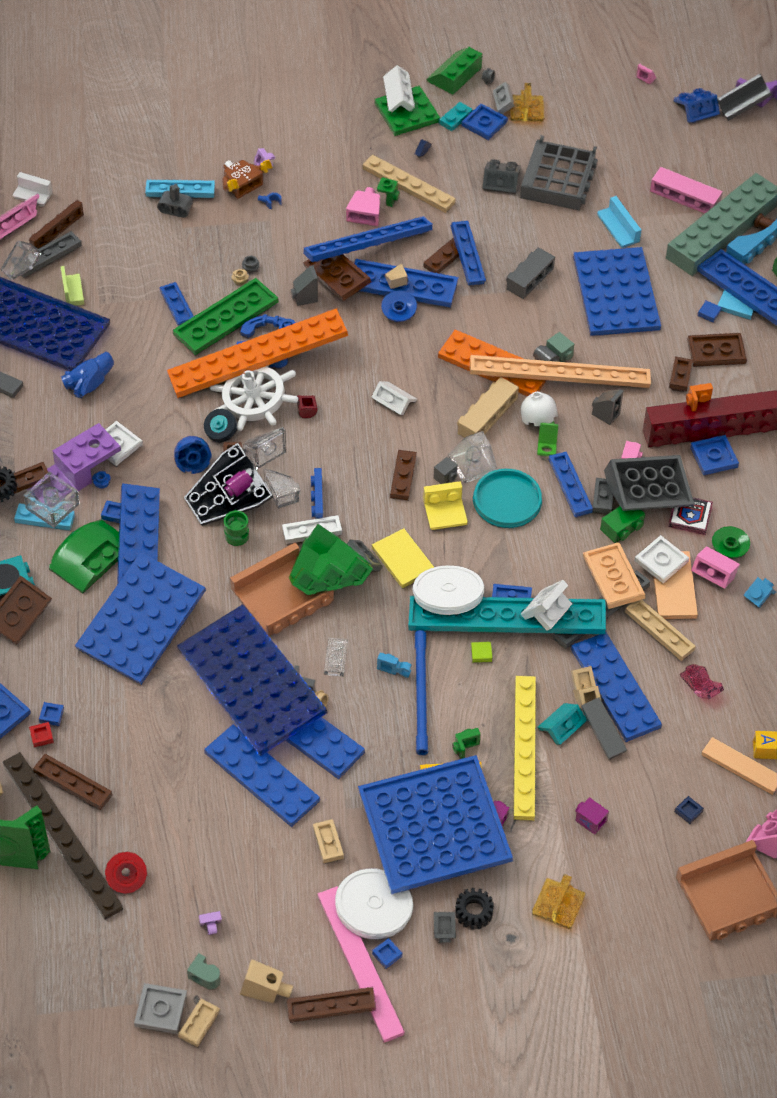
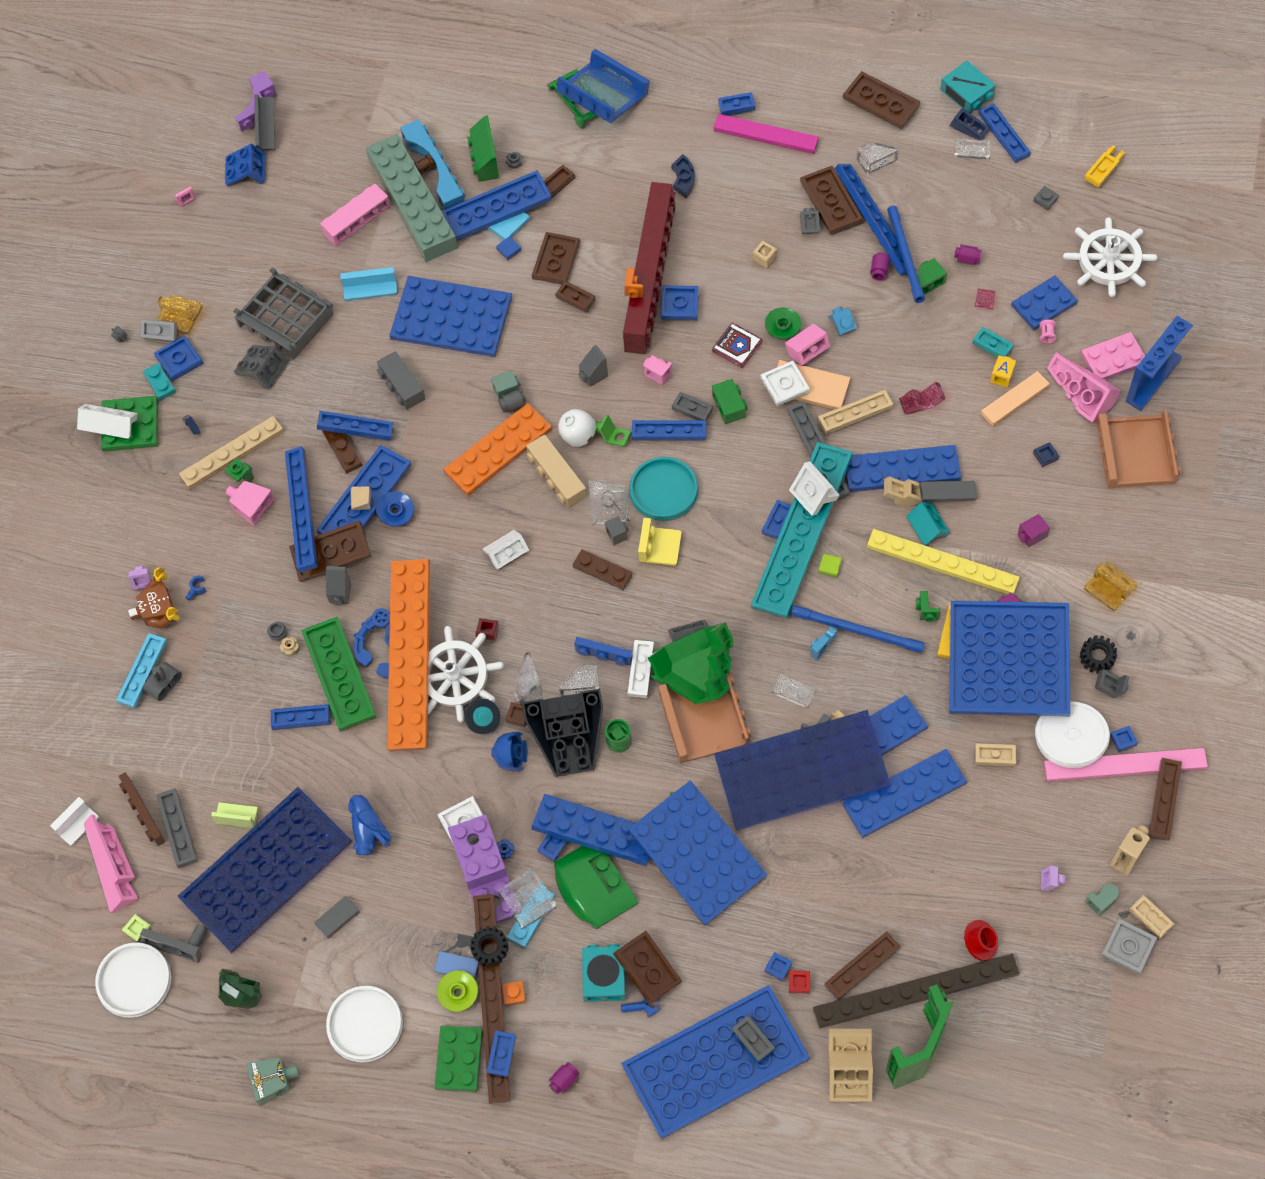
camera: 65 degrees left, 10 degrees up
(20, 260) = (183, 855): clear slope -> none
(238, 483) = (572, 716): magenta brick -> none
(402, 557) = (701, 599): light yellow tile -> none
(448, 590) = (758, 569): white brick -> none
(457, 70) = (95, 361): green slope -> none
(560, 371) = (538, 395): light nougat plate -> none
(614, 575) = (787, 428): light nougat tile -> none
(649, 482) = (702, 363): dark grey slope -> none

